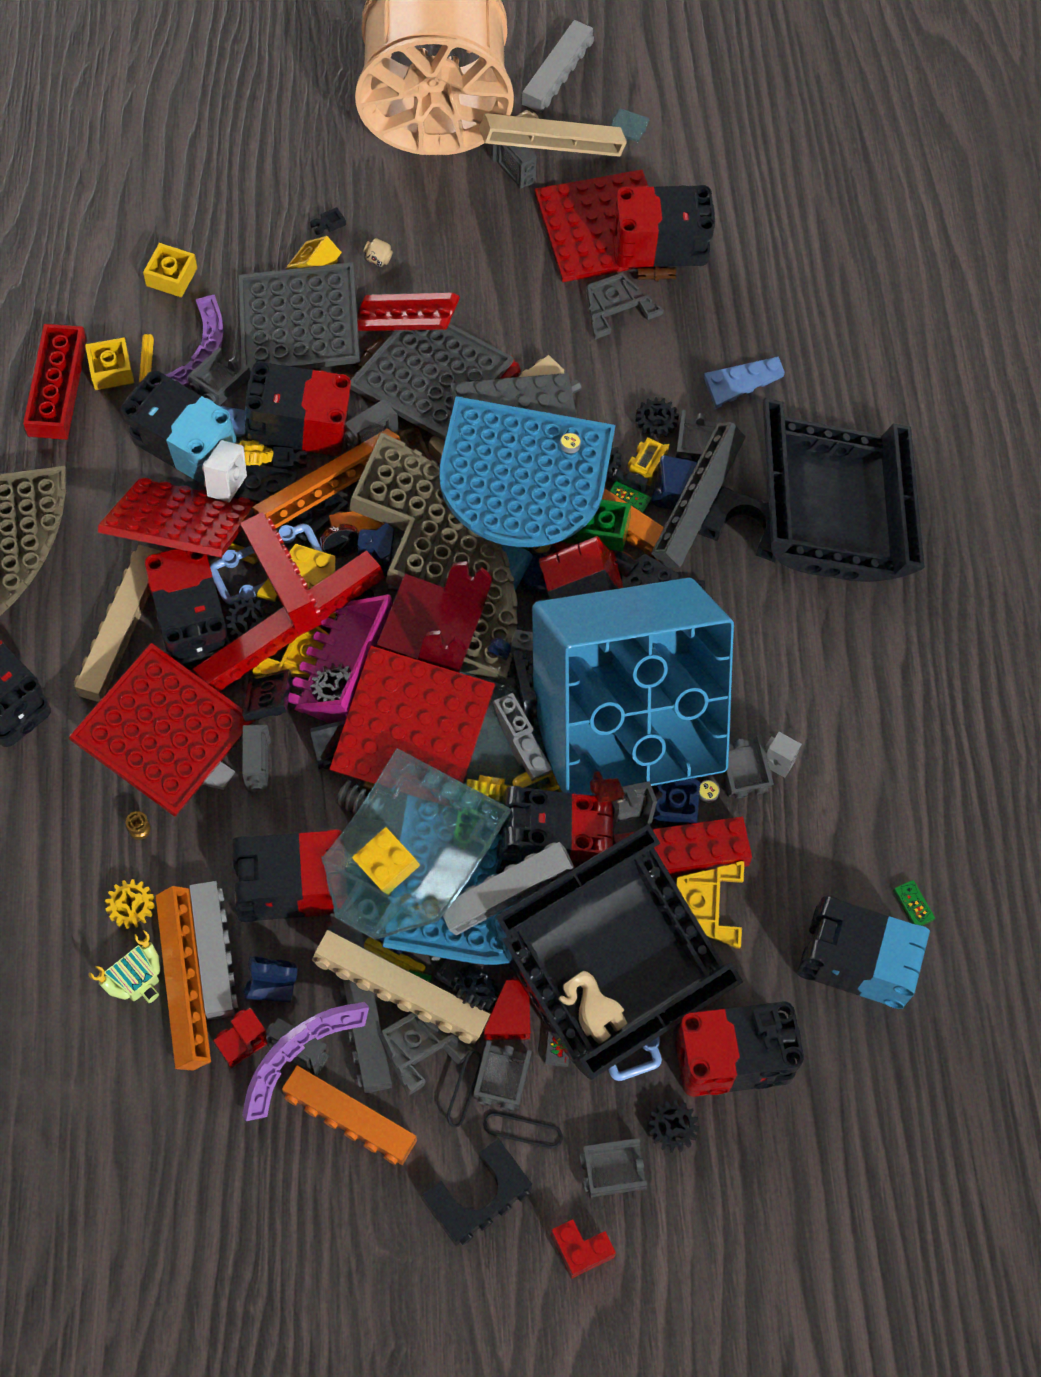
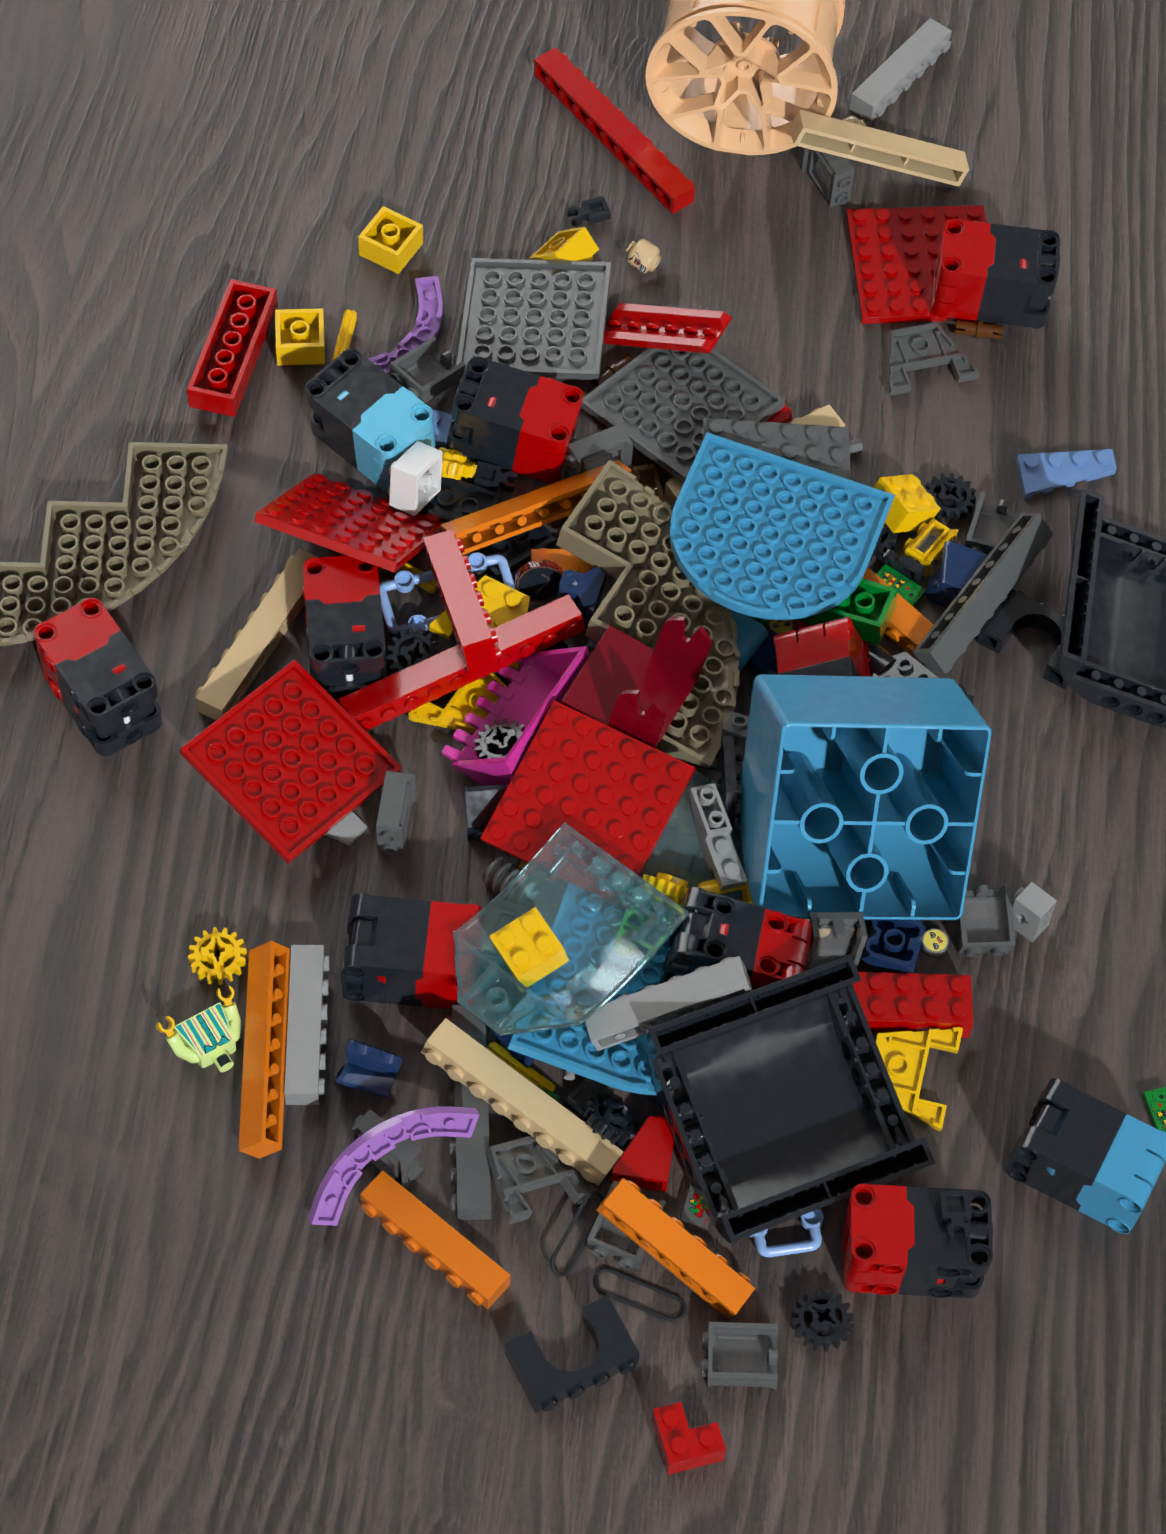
camera: 10 degrees right, 5 degrees down
(139, 830) = (246, 872): pearl gold wheel -> none
(241, 1040) = (324, 1131): red brick -> none
(267, 695) = (421, 743): black plate -> none
(336, 150) = (614, 130): none -> red brick
(500, 648) = (709, 730): dark blue tile -> none
(546, 1089) = (676, 1248): none -> orange brick
(570, 443) = (835, 506): tile -> none
(594, 1007) = (750, 1161): tan hips -> none
(606, 789) = (807, 910): clear red bracket -> none
(629, 427) = (910, 505): none -> yellow brick
(631, 124) = (979, 151): clear light blue piece -> none

